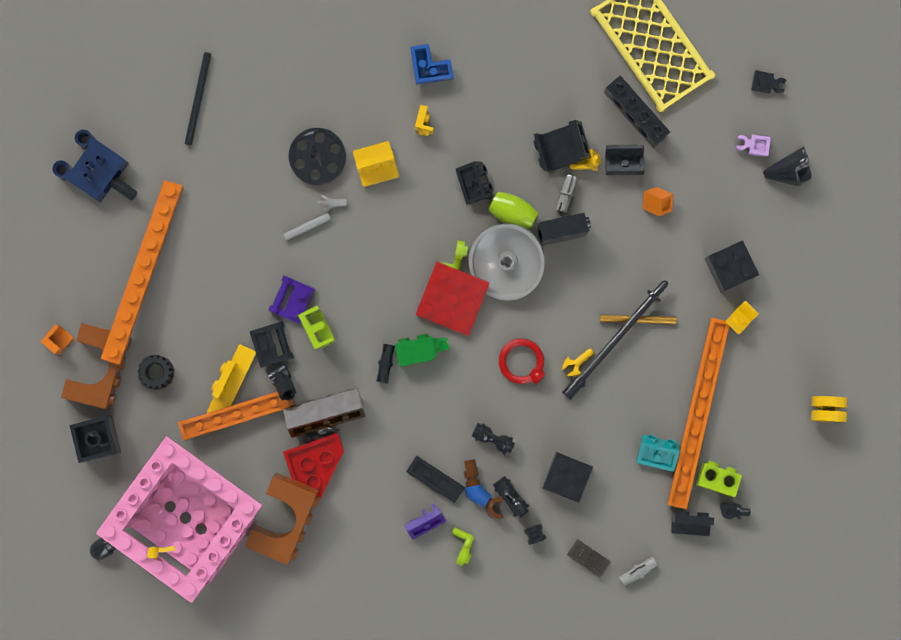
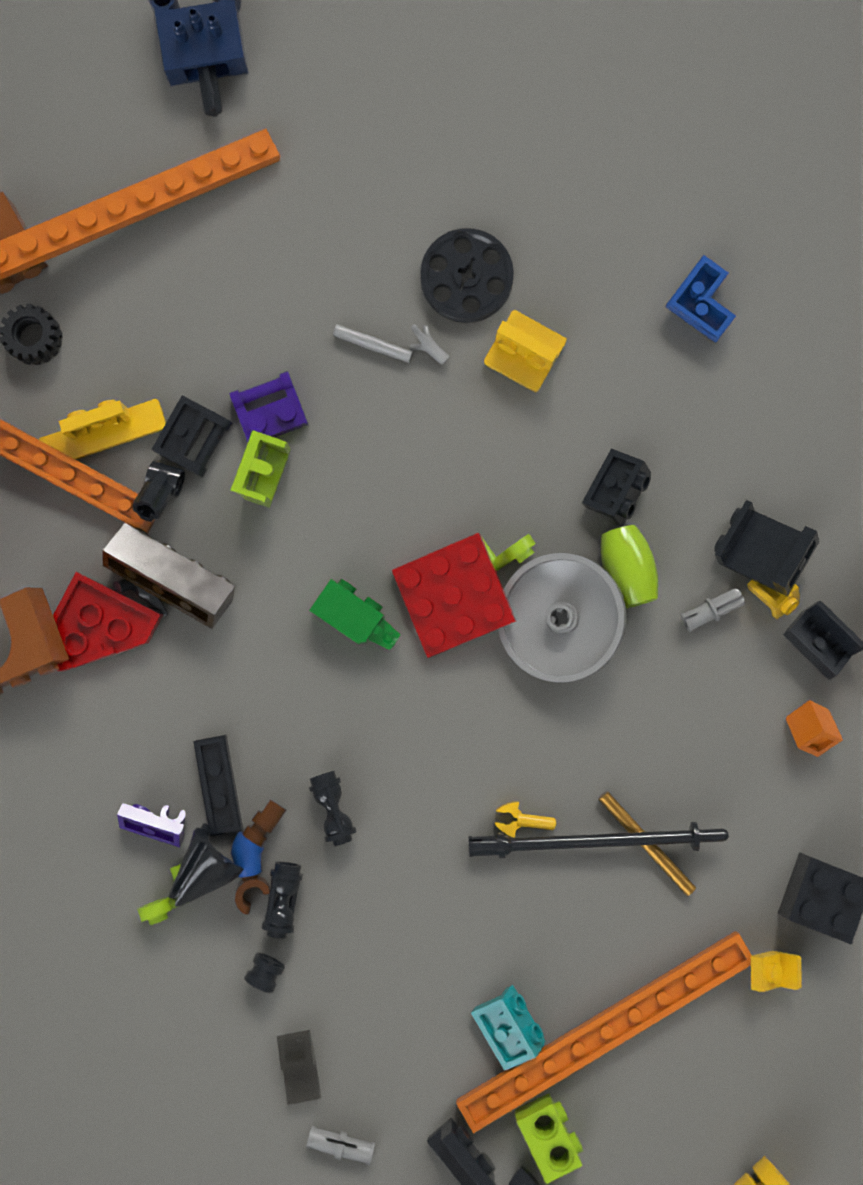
camera: 45 degrees right, 0 degrees up
(197, 99) = (399, 76): black piece -> none
(385, 363) = (298, 591): black pin -> none
(423, 117) = (631, 352): yellow bracket -> none
(466, 517) = (202, 869): none -> black hat
(535, 375) = (458, 784): red piece -> none
(563, 229) = (669, 647): black brick -> none
(567, 477) = (370, 945): black brick -> none

